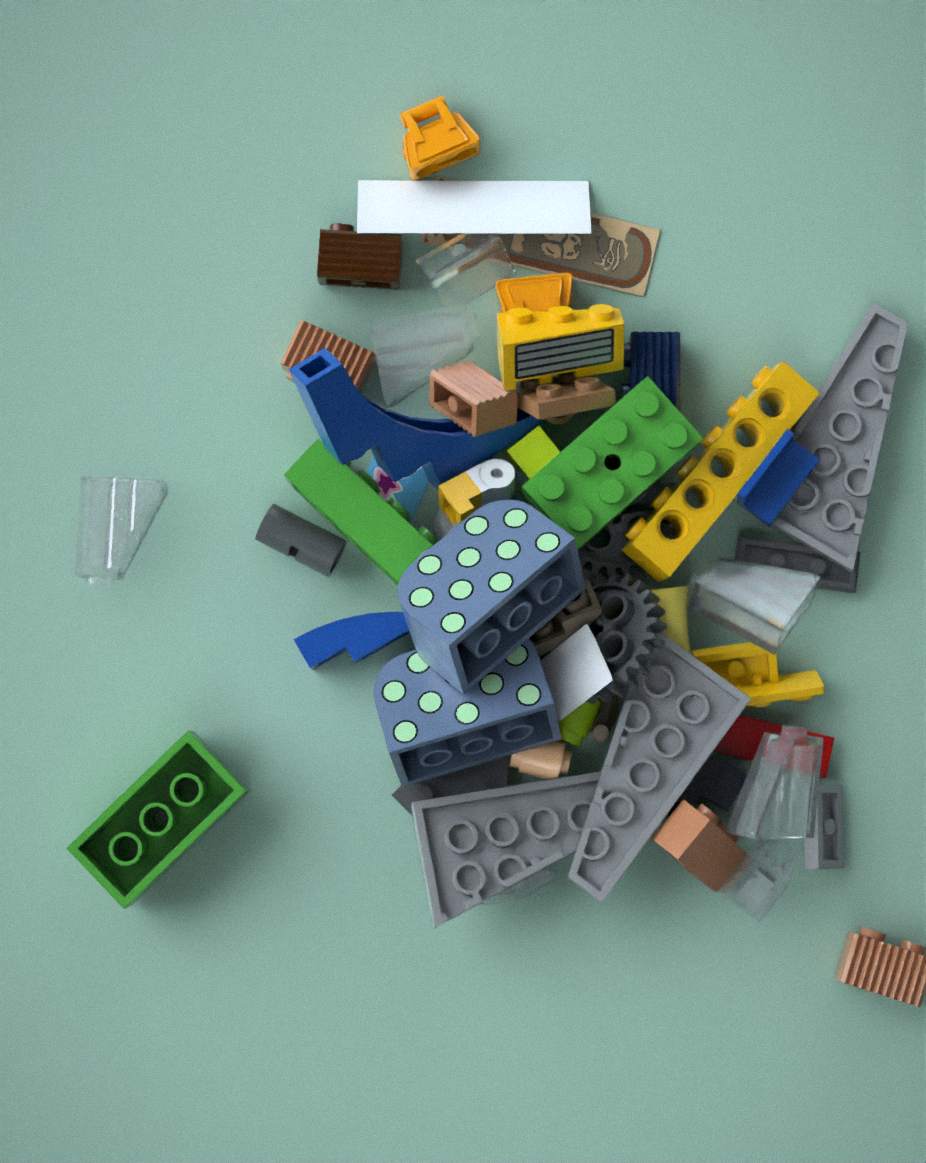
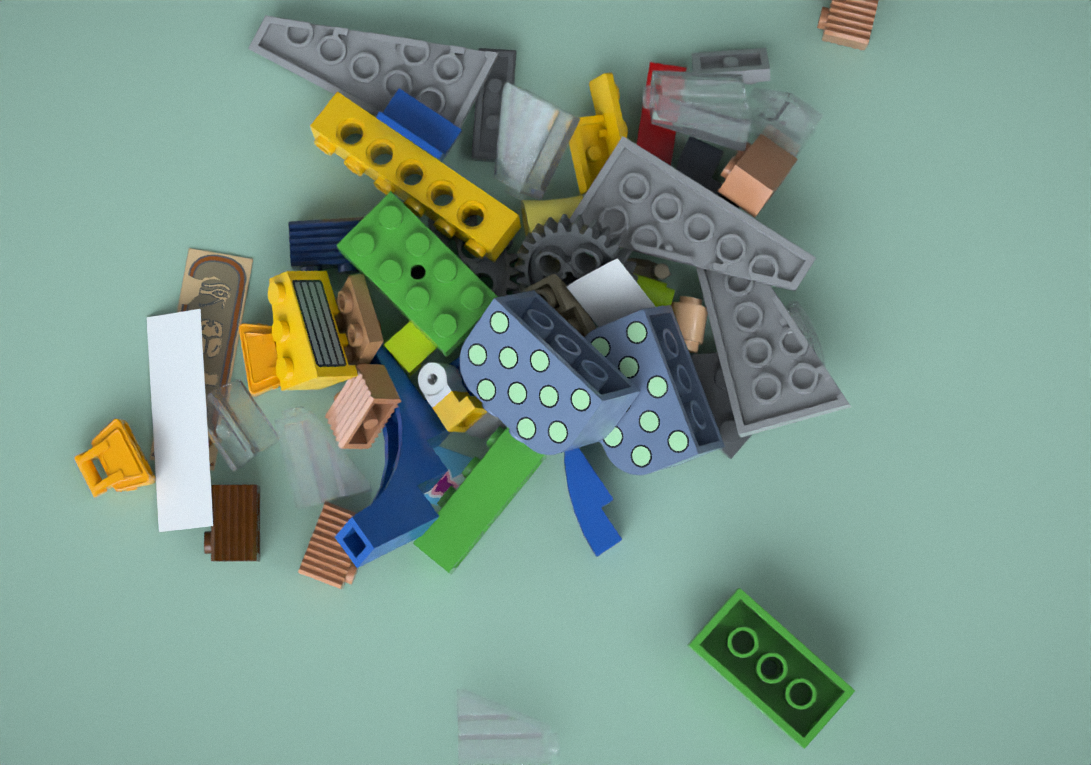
camera: 95 degrees left, 0 degrees up
(300, 539) = (502, 558): dark grey pin -> none

